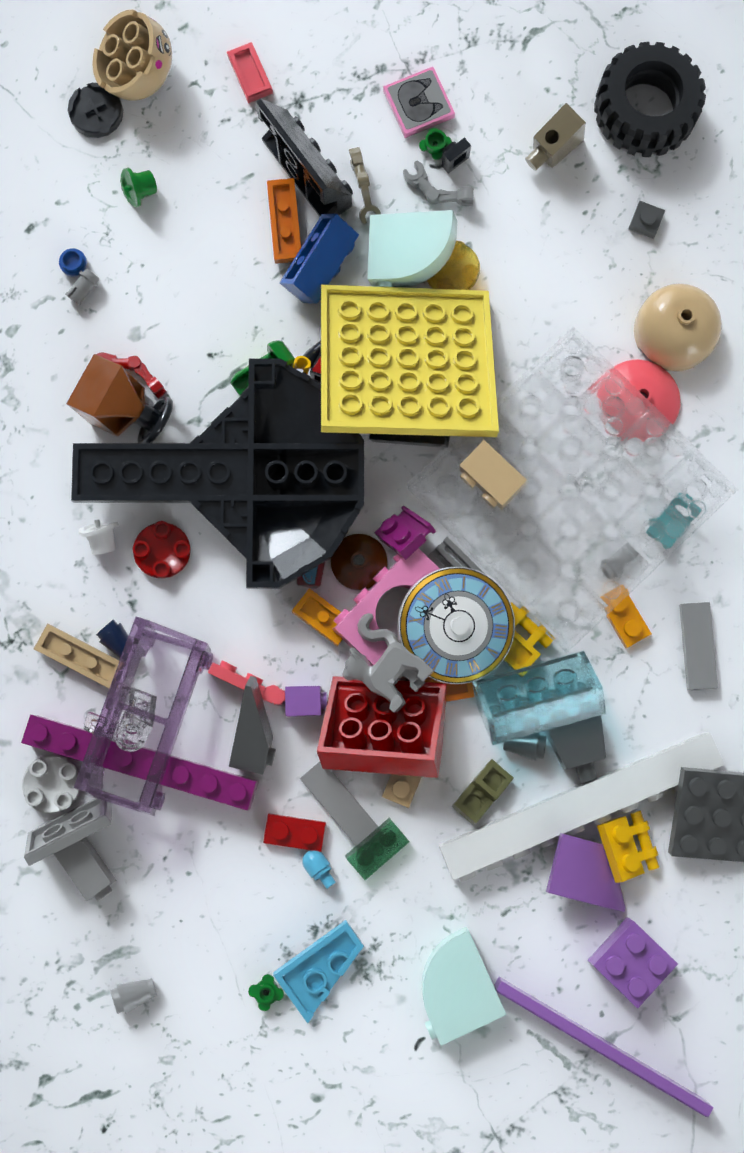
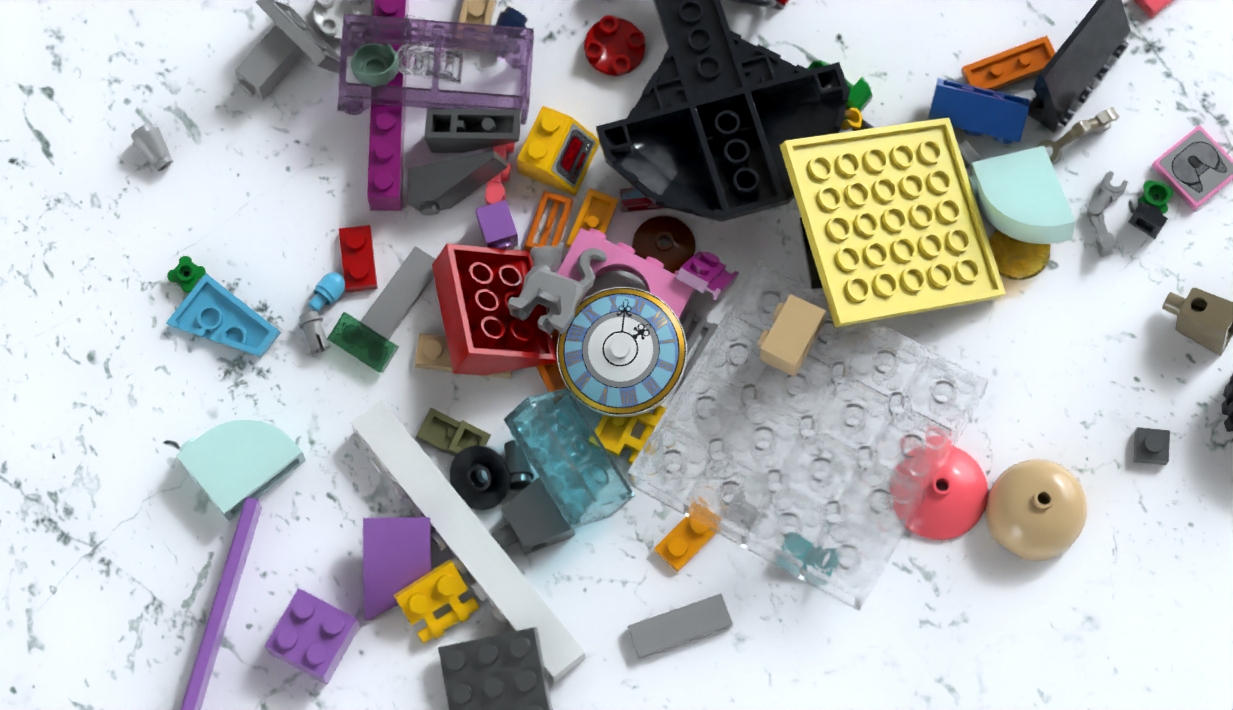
camera: 75 degrees right, 10 degrees down
(126, 770) = (375, 64): none -> sand green hair
(209, 698) = (470, 129): none -> dark grey slope
(248, 627) = (557, 151): none -> yellow slope
(291, 641) = (558, 199): none -> orange tile
(351, 889) = (314, 331): none -> light grey pin
(356, 279) = (968, 153): none -> light grey plate
(529, 779) = (468, 479): none -> black dish

